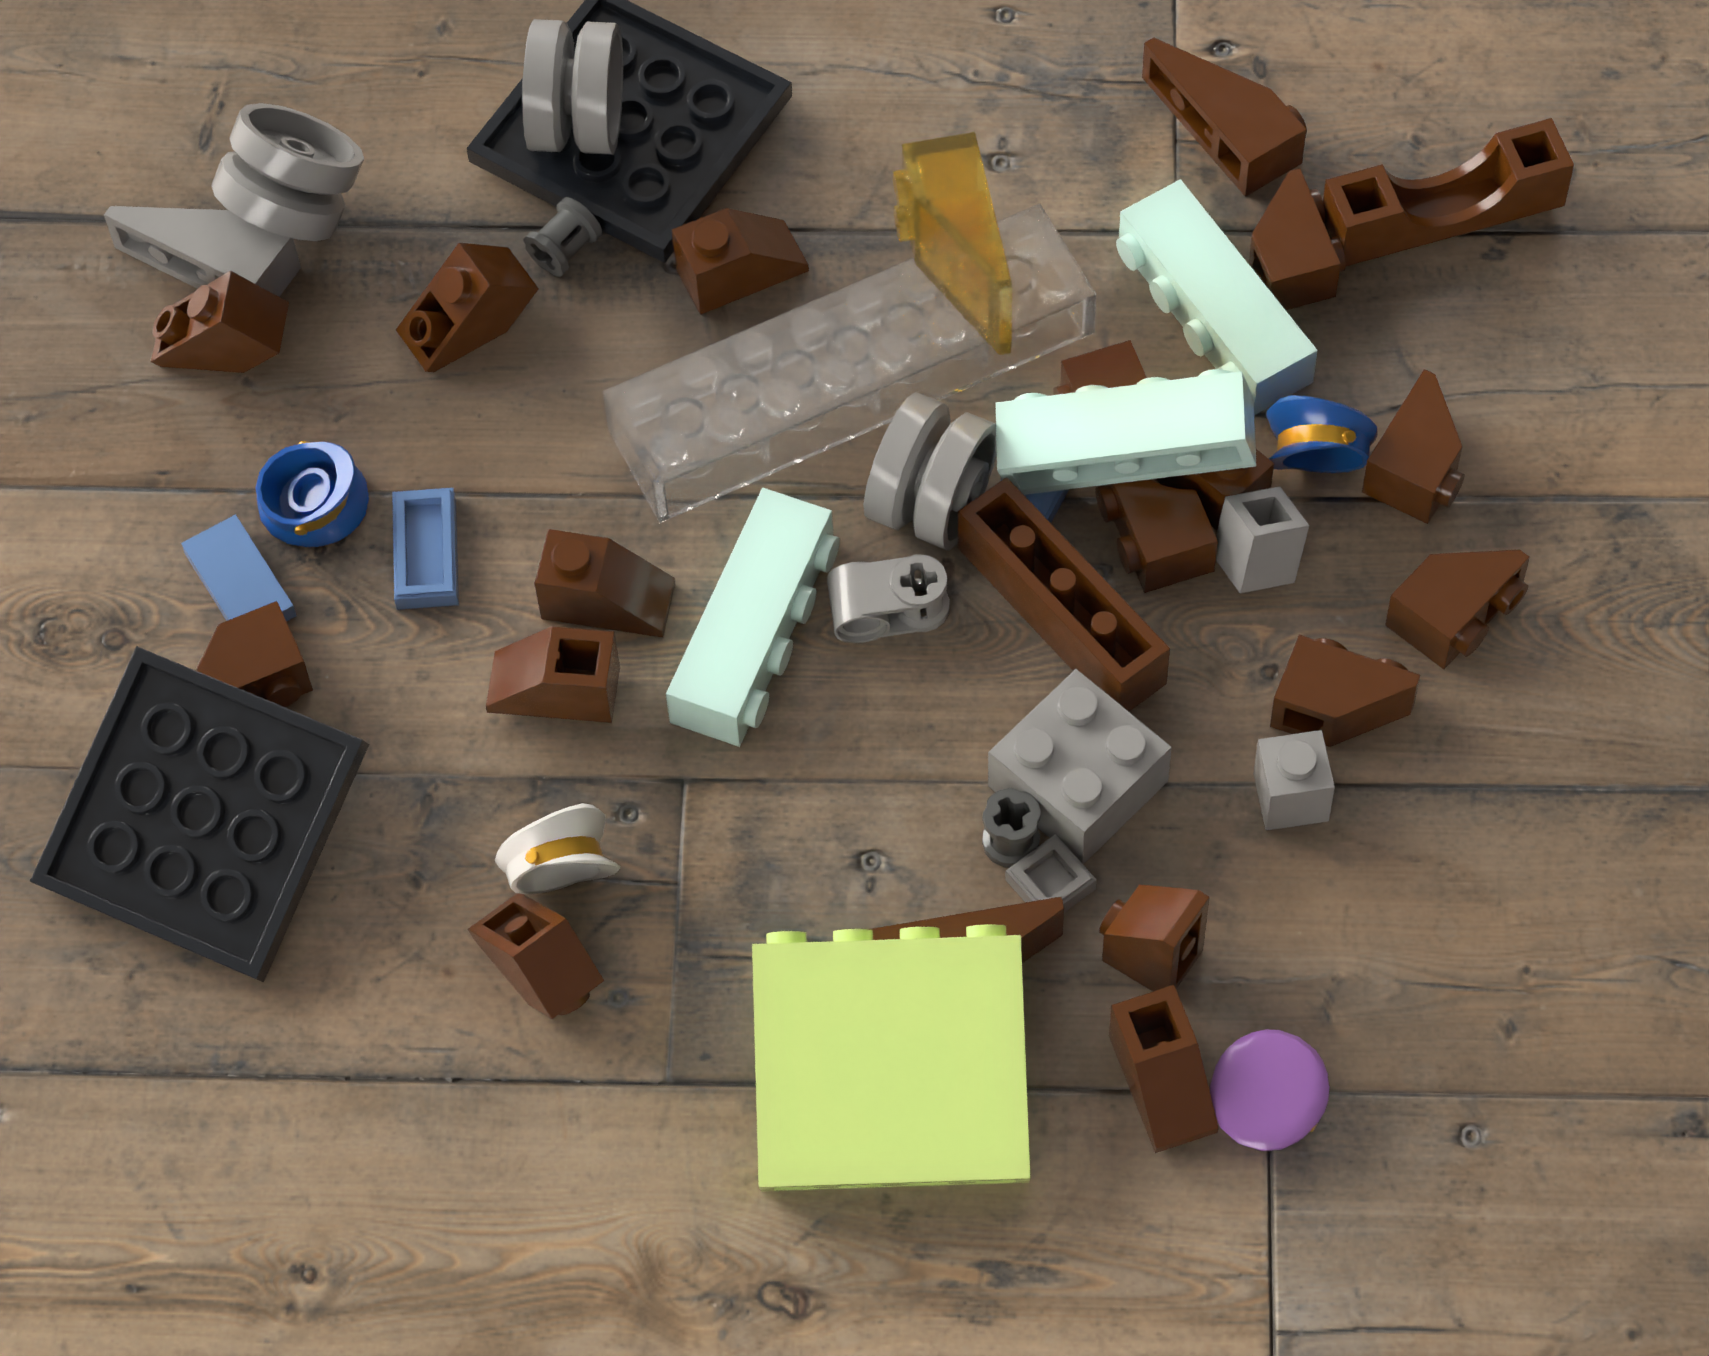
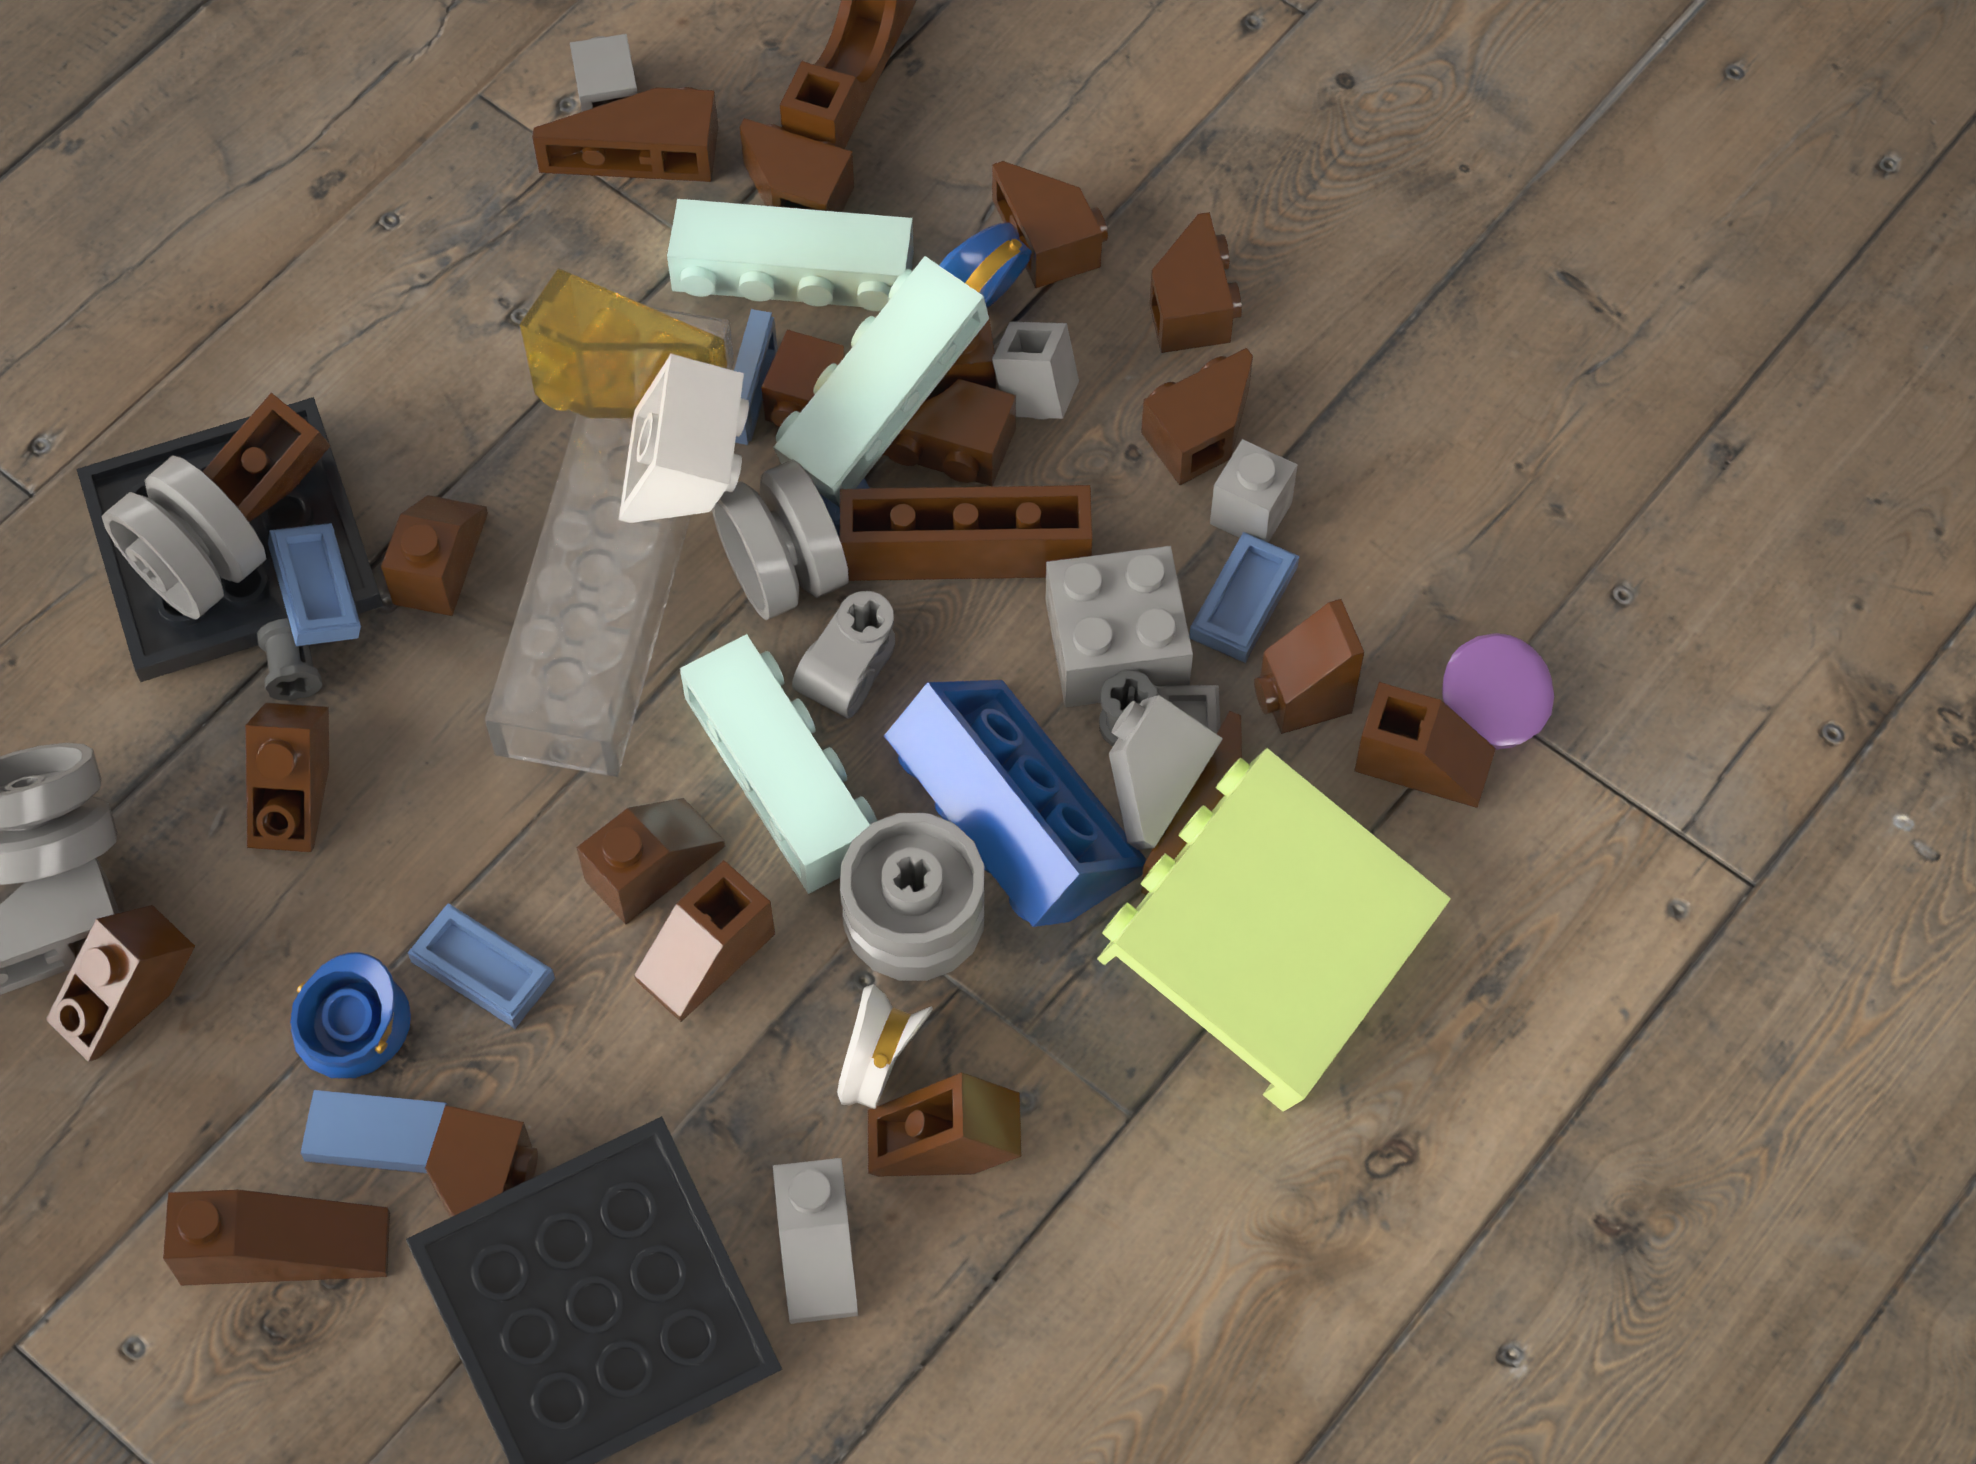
camera: 55 degrees left, 0 degrees up
(100, 572) = (272, 1238): none -> reddish brown slope
(376, 926) = (815, 1240): none -> light grey slope
(626, 201) = (314, 584): none -> medium blue tile
(686, 87) = (266, 457): none -> reddish brown slope
(710, 789) = (913, 896): none -> light grey wheel
(863, 801) = (1014, 798): none -> blue slope
(923, 333) = (684, 441): none -> white slope
(962, 874) = (1156, 765): none -> light grey slope
(1041, 361) = (755, 360): none -> medium blue tile
(1202, 844) = (1244, 597): none -> medium blue tile
(1259, 47) = (603, 70): none -> light grey brick

